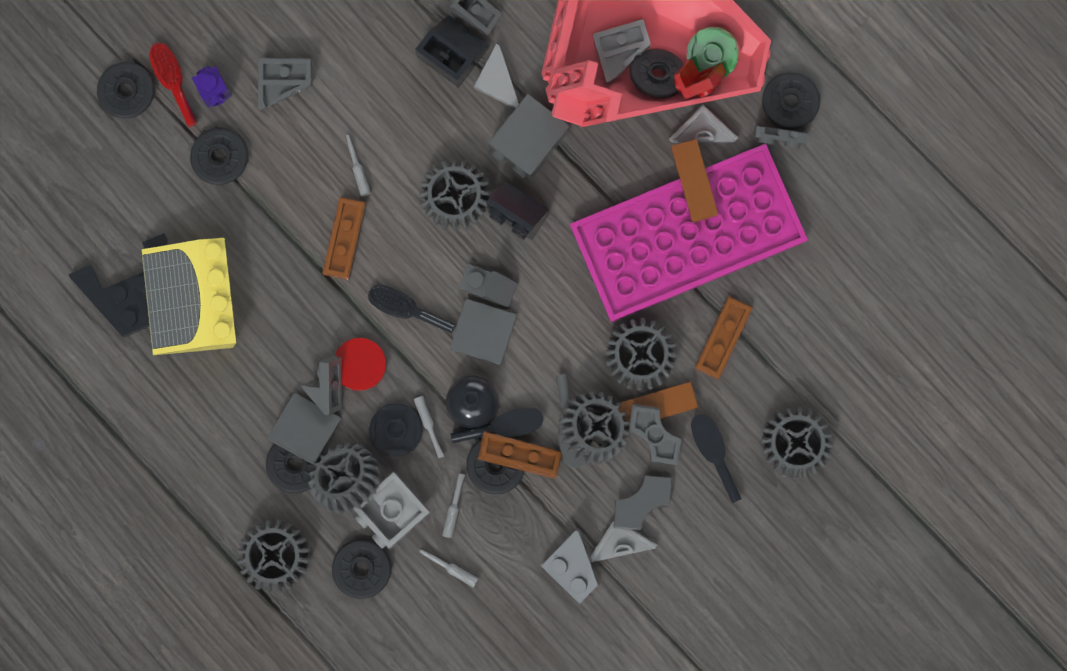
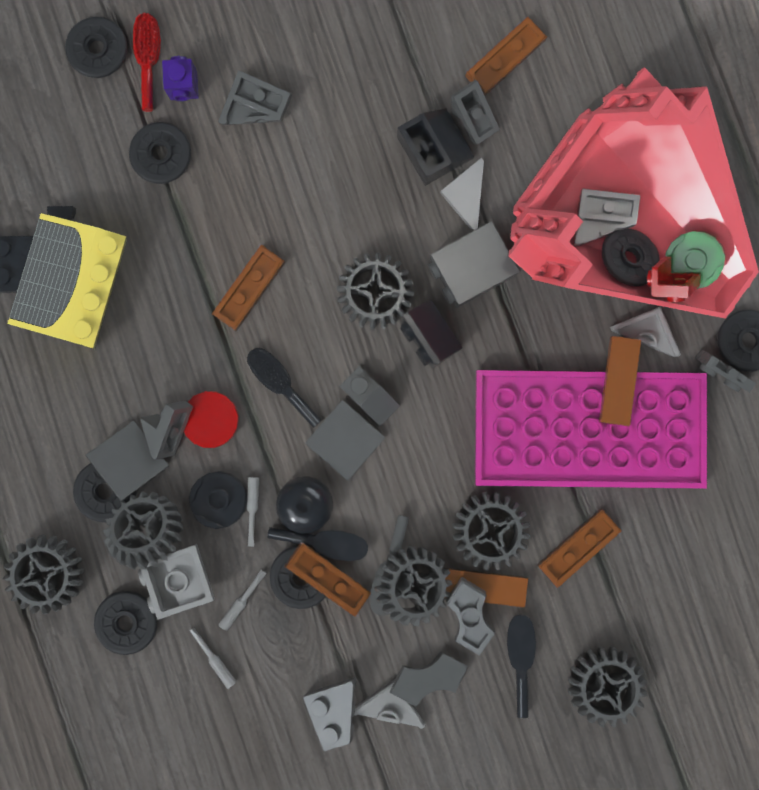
camera: 15 degrees right, 5 degrees up
(358, 171) = (291, 226): light grey piece -> none

